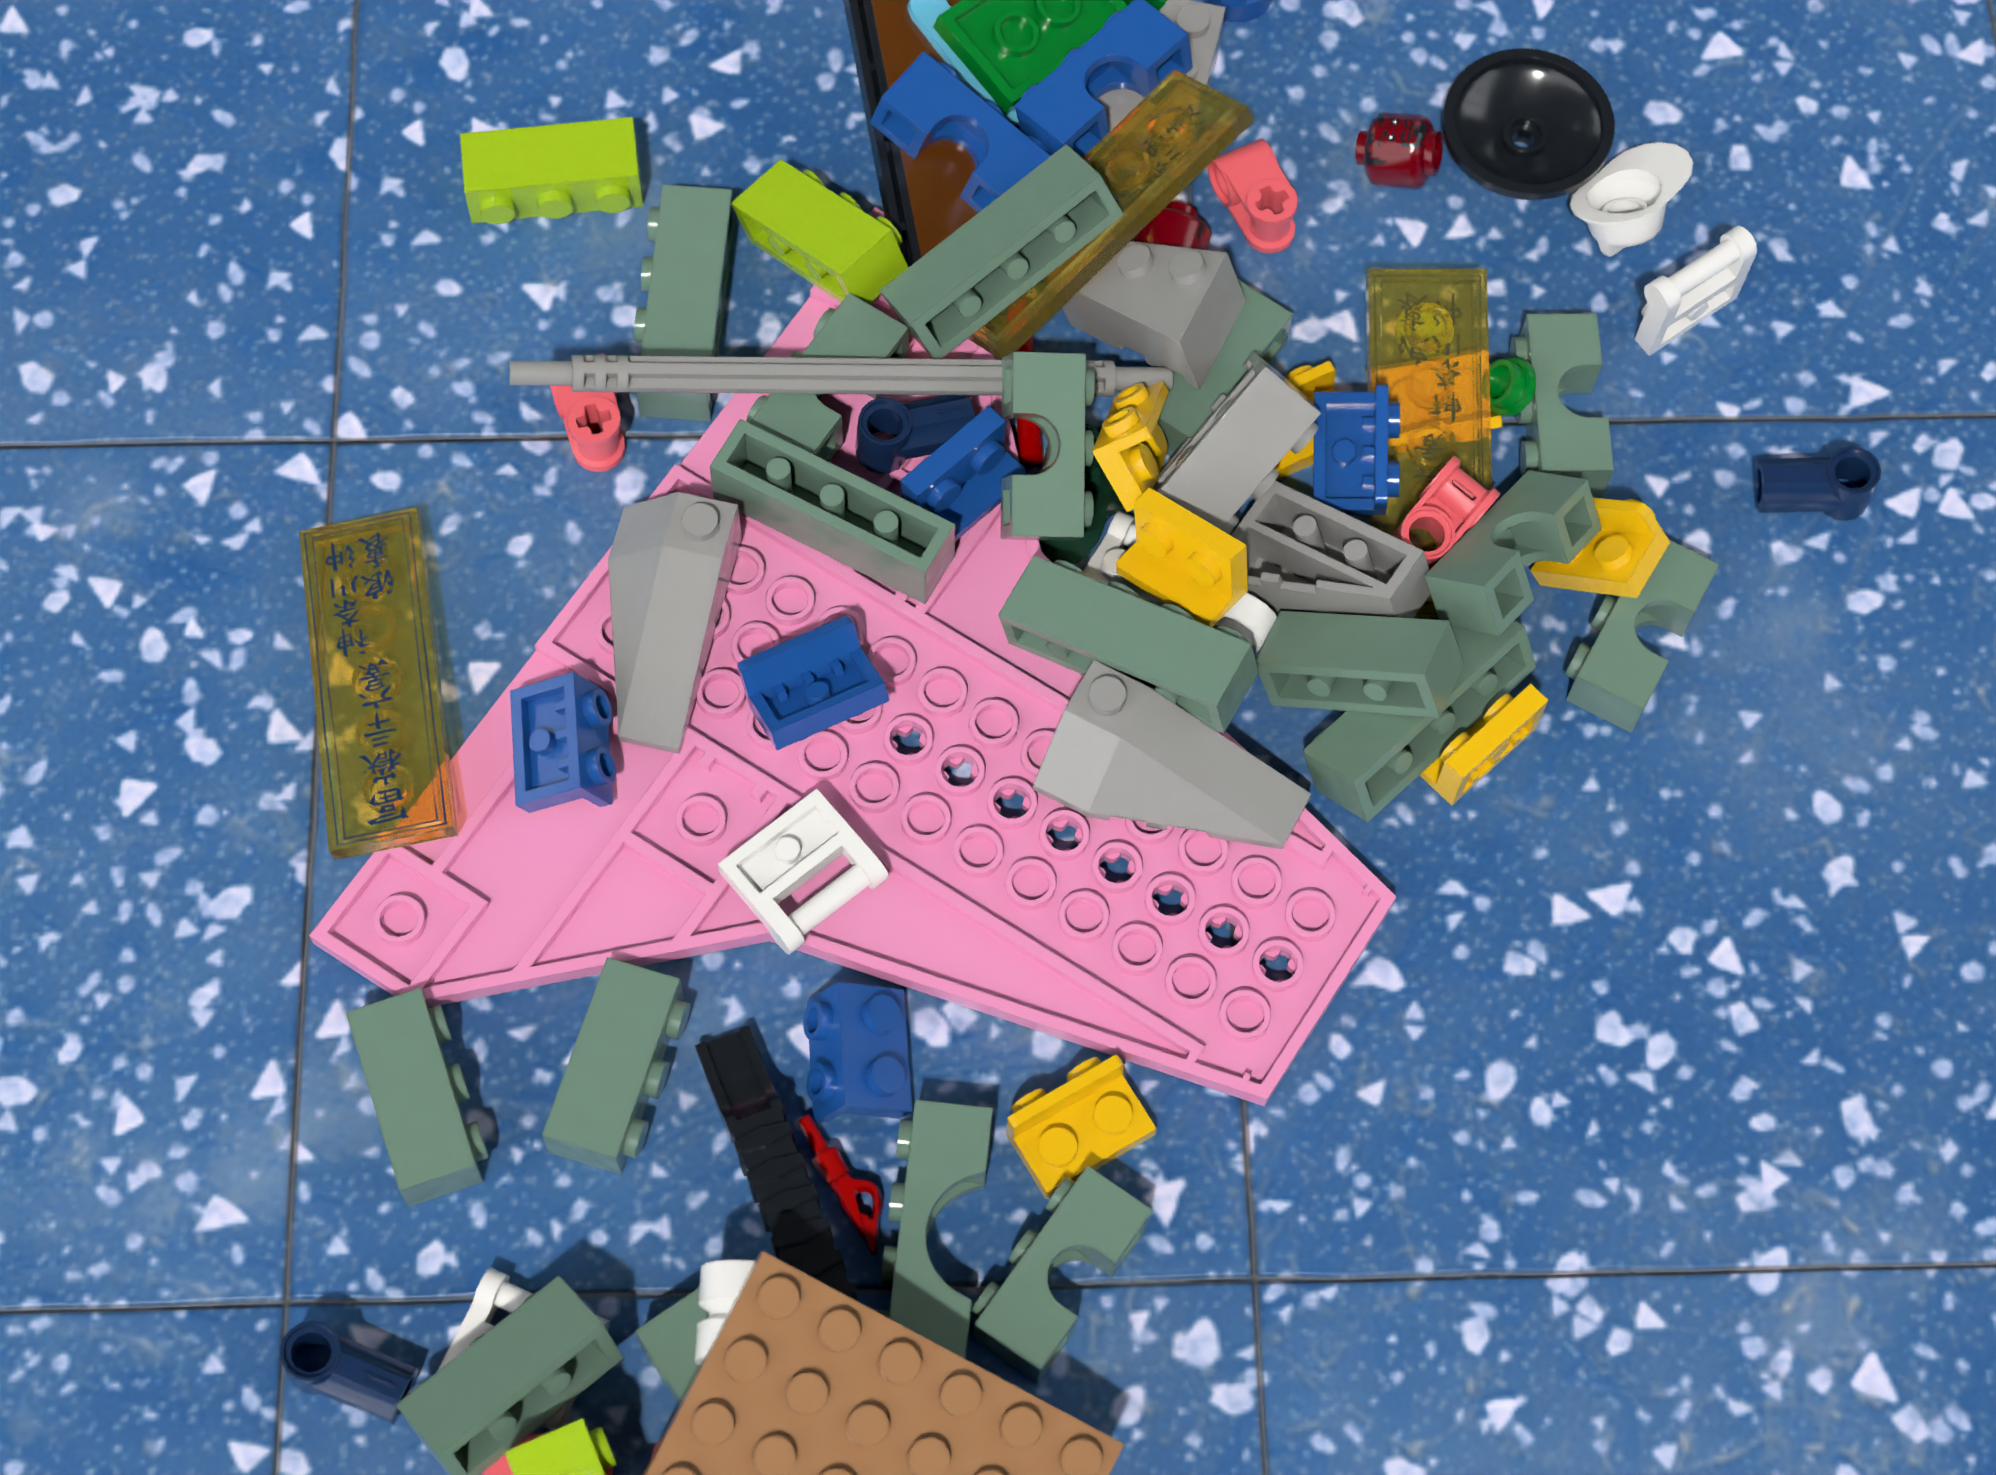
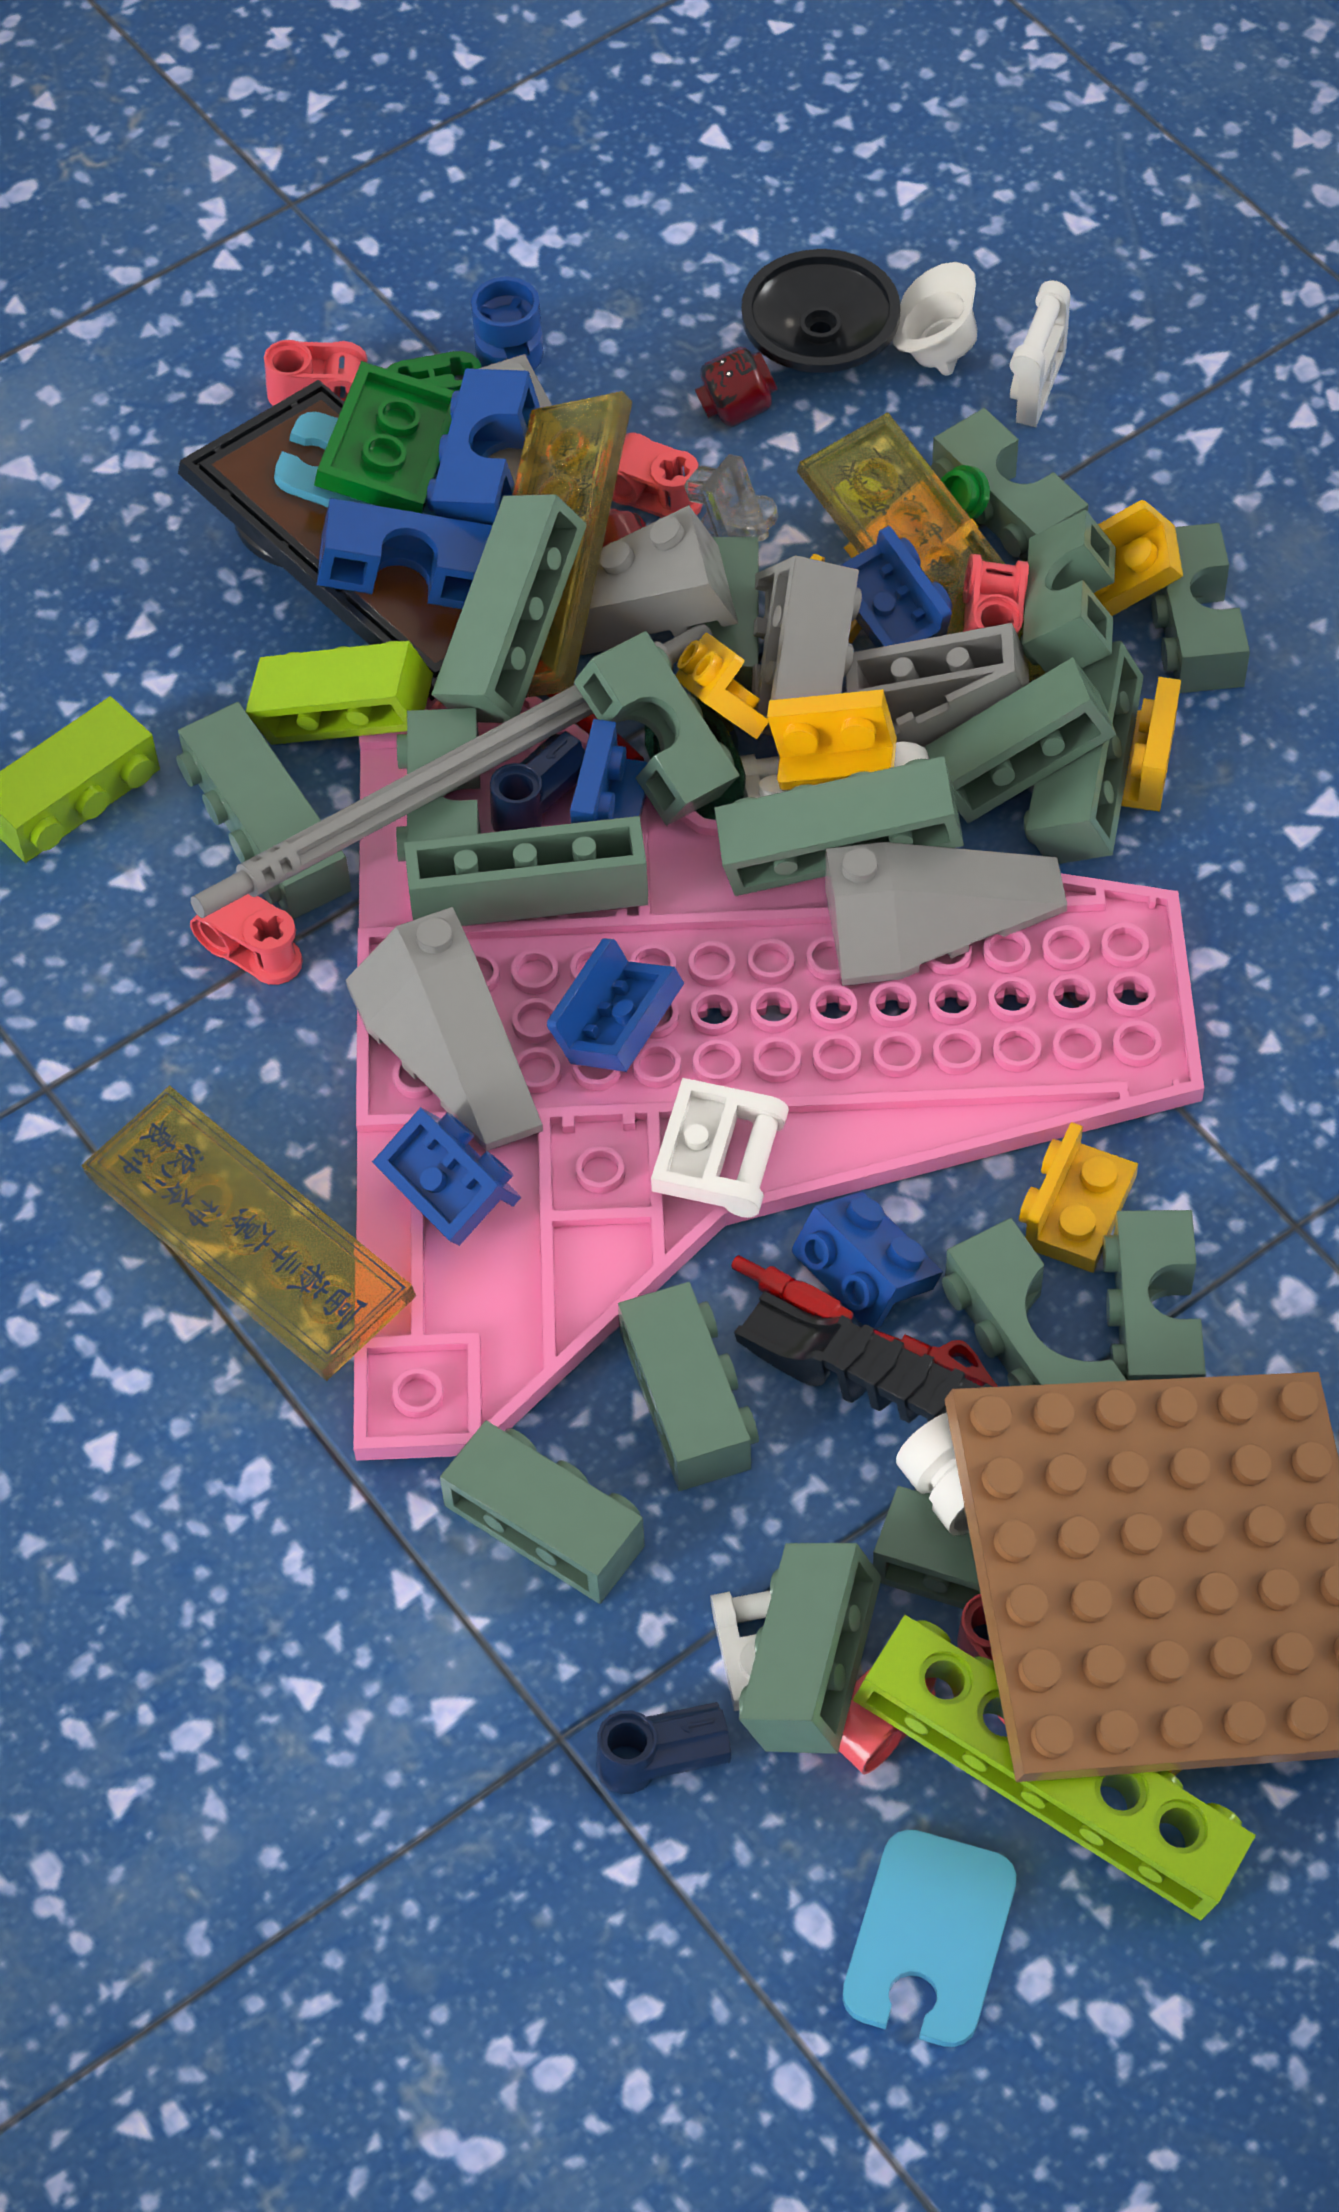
camera: 30 degrees left, 10 degrees down
(772, 1042) = (791, 1290): none -> red hand
(1294, 265) = (731, 501): none -> clear hips
(1814, 484) = (1243, 433): dark blue piece -> none

